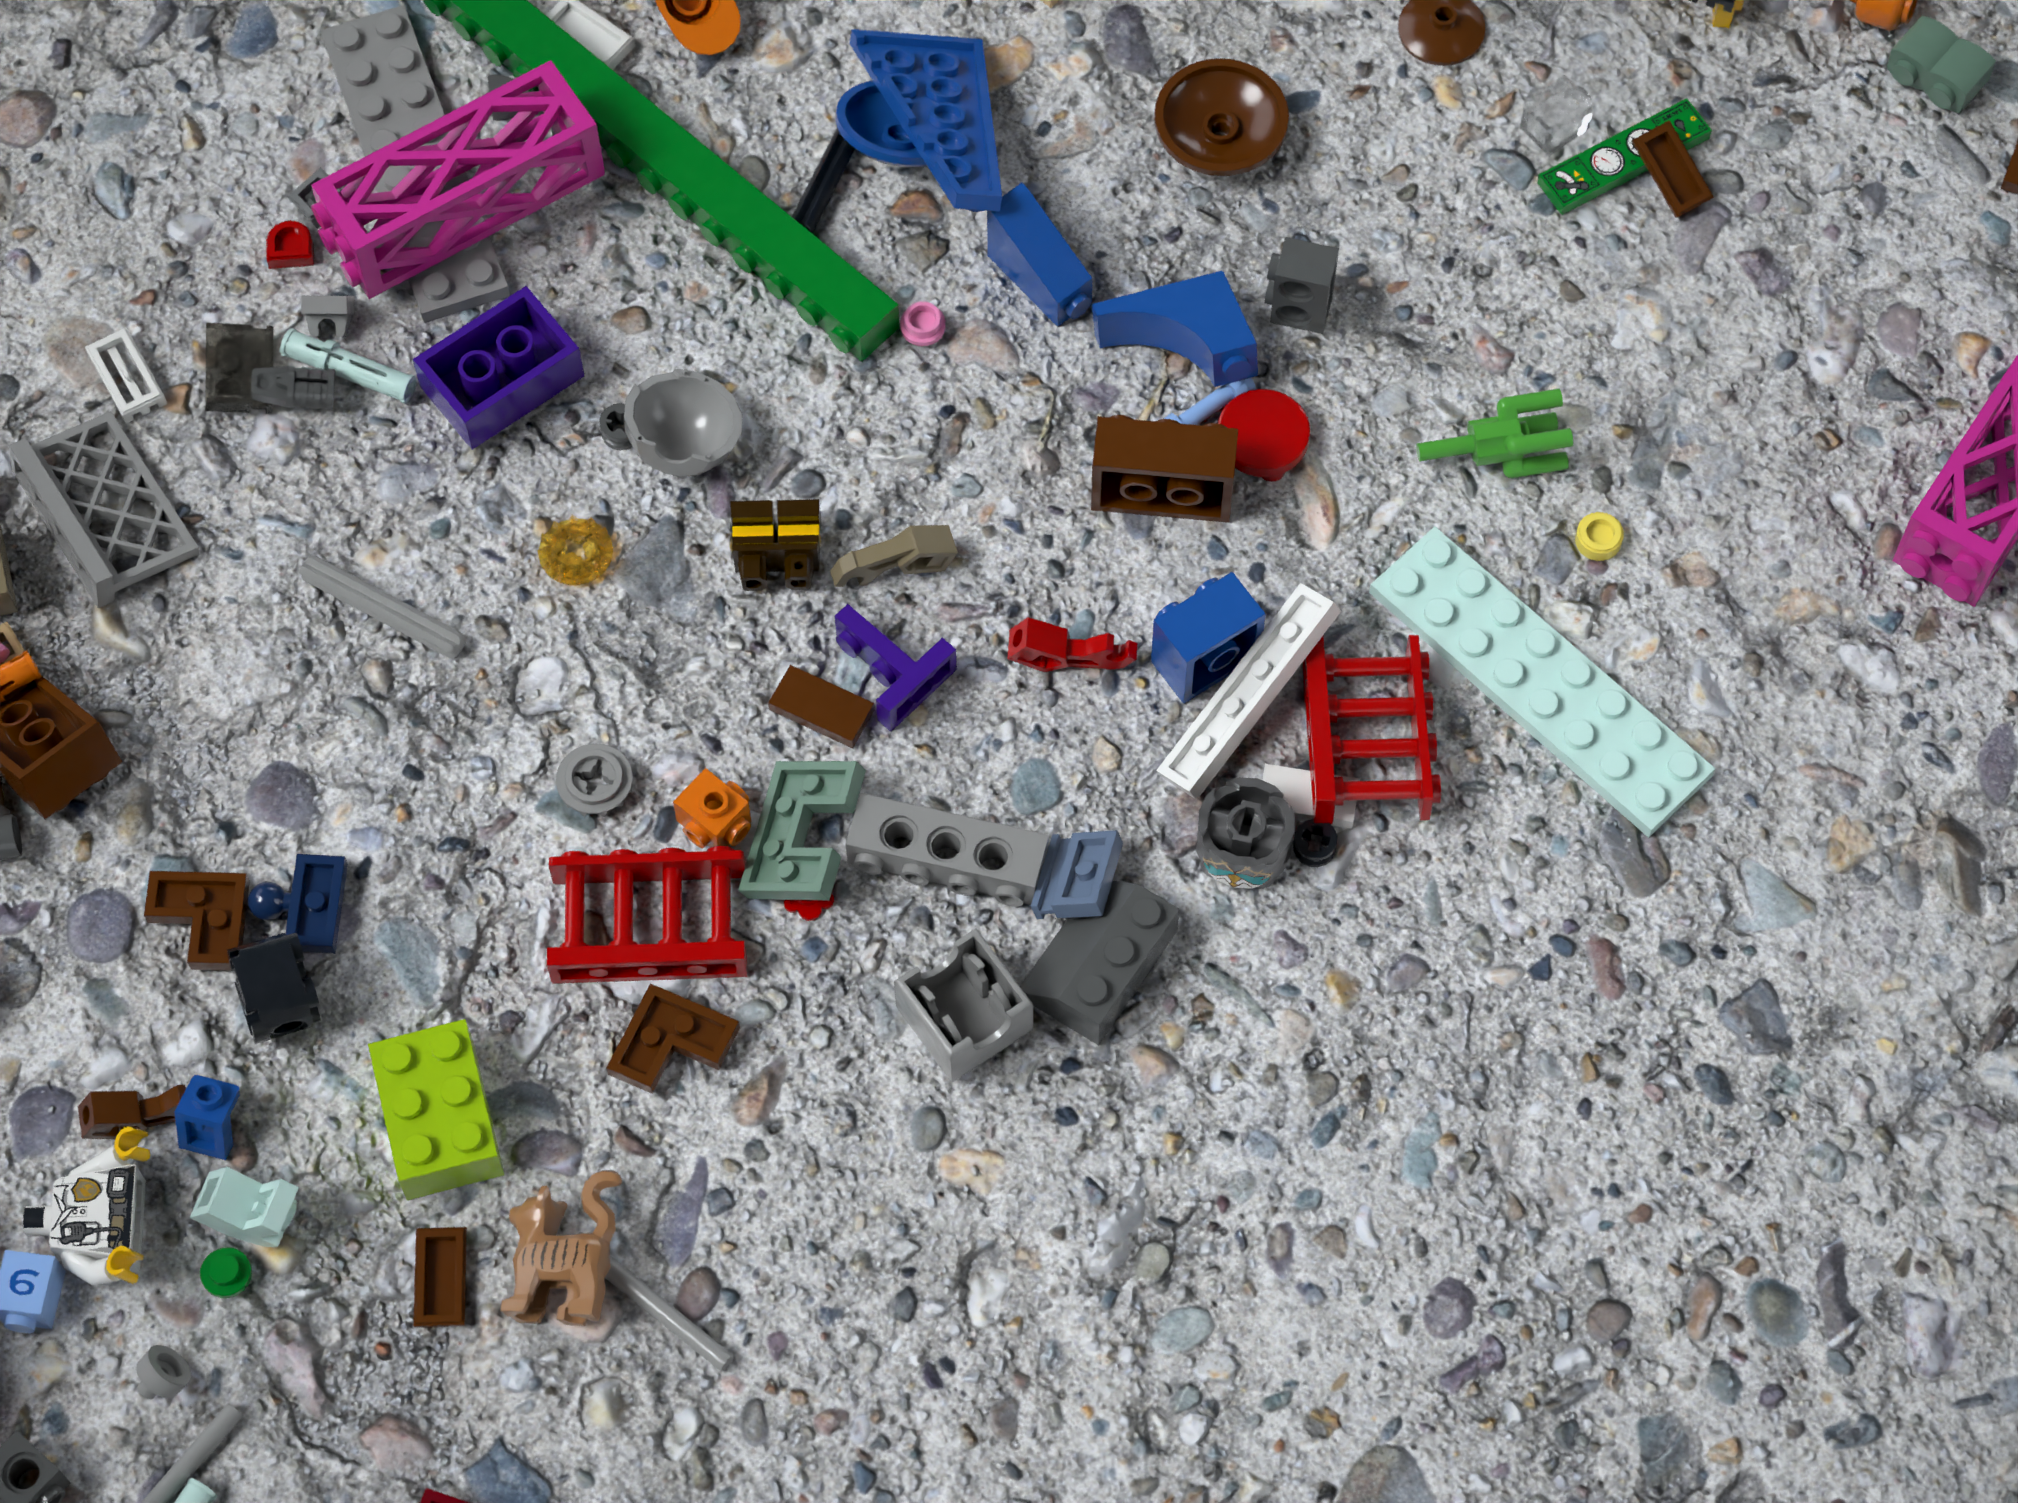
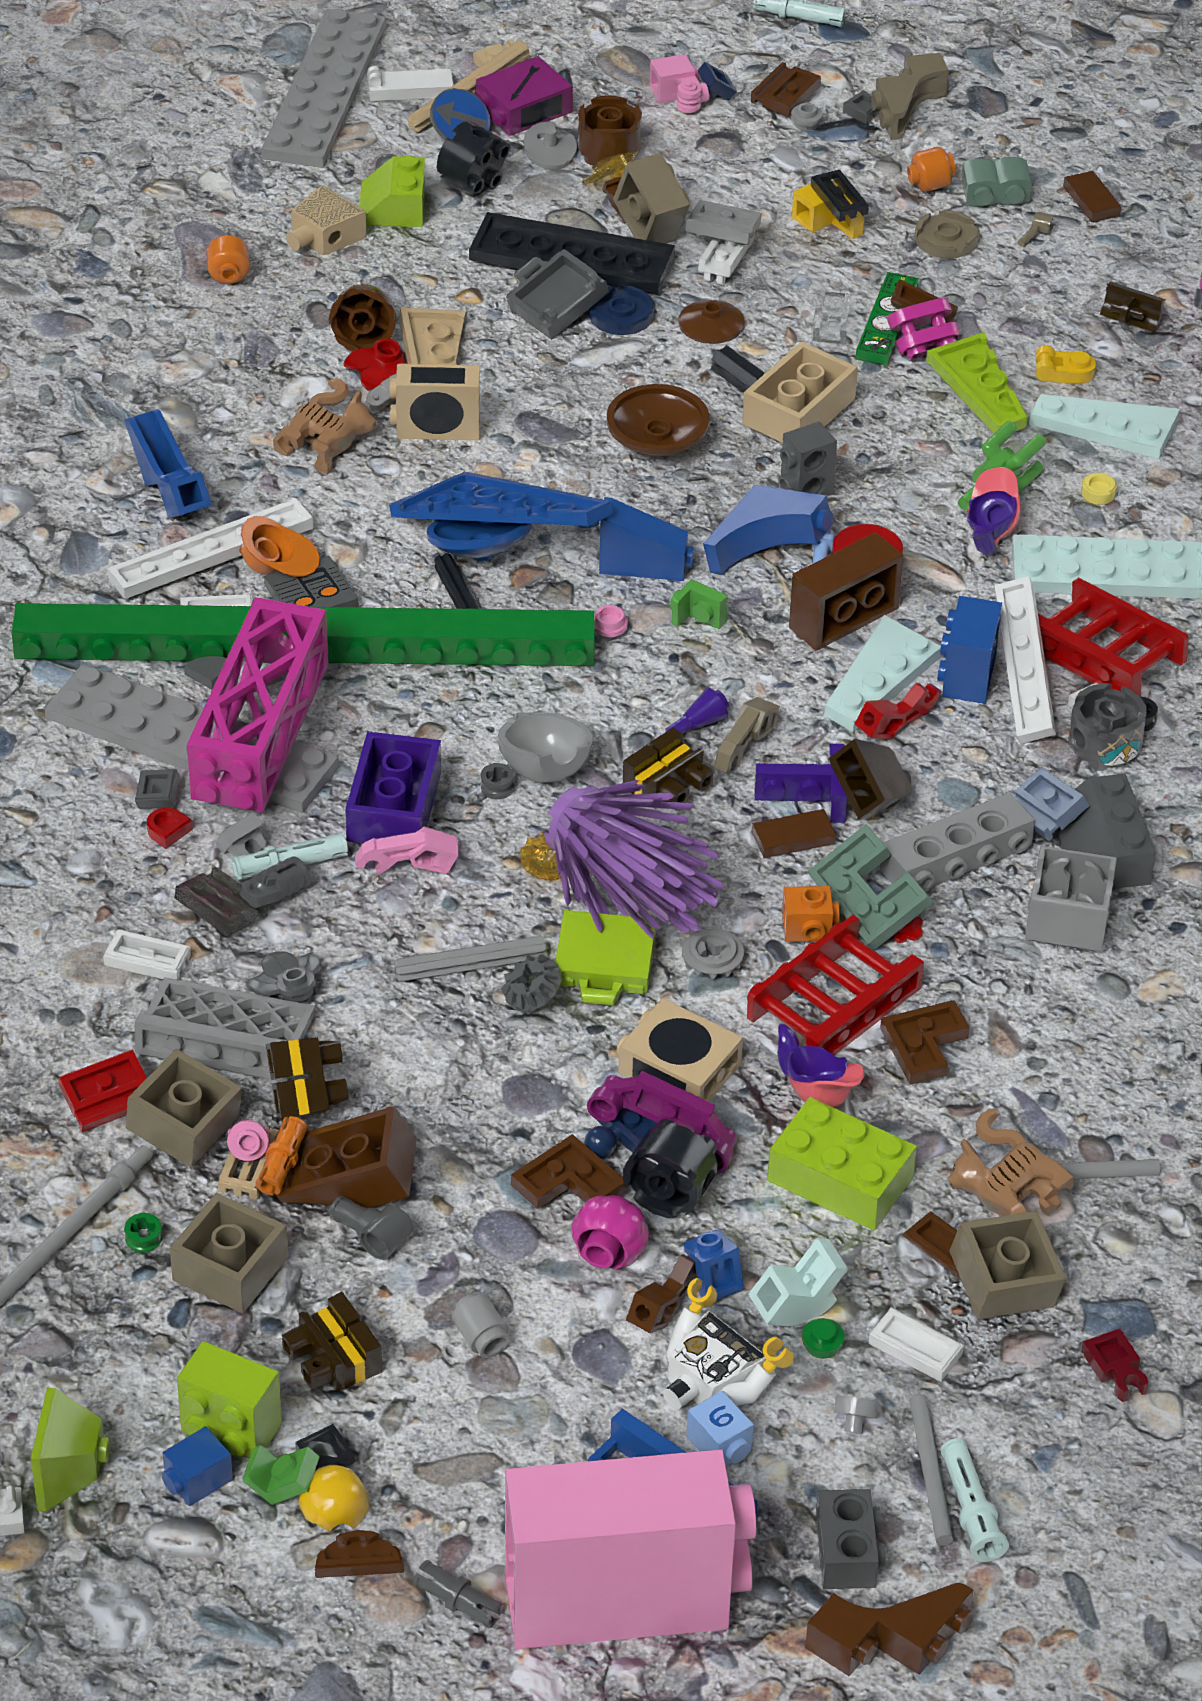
camera: 45 degrees left, 20 degrees down
(78, 621) = (302, 1058): none -> dark brown hips
(168, 1003) = (604, 1227): none -> dark pink plant
(210, 494) = (286, 976): none -> dark grey plate
(299, 1352) = (916, 1344): none -> white tile
(351, 942) = (660, 1101): none -> magenta plate
(392, 695) = (542, 987): none -> dark grey gear
(433, 868) = (681, 1050): none -> tan brick
(444, 1349) = (1007, 1264): none -> dark tan brick
(454, 450) = (425, 849): none -> bright pink piece
(493, 701) = (606, 960): none -> lime piece
(518, 991) = (815, 1070): none -> dark purple hair
(577, 622) = (600, 836): none -> medium lavender plant
(693, 82) = (320, 589): none -> dark grey tile
(892, 499) = (706, 709): none -> dark purple cone
(935, 712) = (870, 777): none -> dark brown torso
(1021, 362) = (699, 603): none -> bright green bracket
(1115, 585) = (881, 670): none -> light aqua wing
(1385, 121) = (735, 368): none -> black axle
(1400, 192) = (799, 392): none -> tan brick
(1432, 486) = (993, 508): none -> dark purple hair
(1624, 305) = (977, 379): none -> lime wing
(1645, 225) = (916, 343): none -> dark pink brick
(1712, 470) = (1115, 424): none -> light aqua wing
(1754, 367) = (1064, 366): none -> yellow plate
(1815, 93) = (947, 234): none -> dark tan tile
(1898, 338) = (1132, 306): none -> dark brown hips
(1932, 151) = (1040, 223): none -> dark tan hand

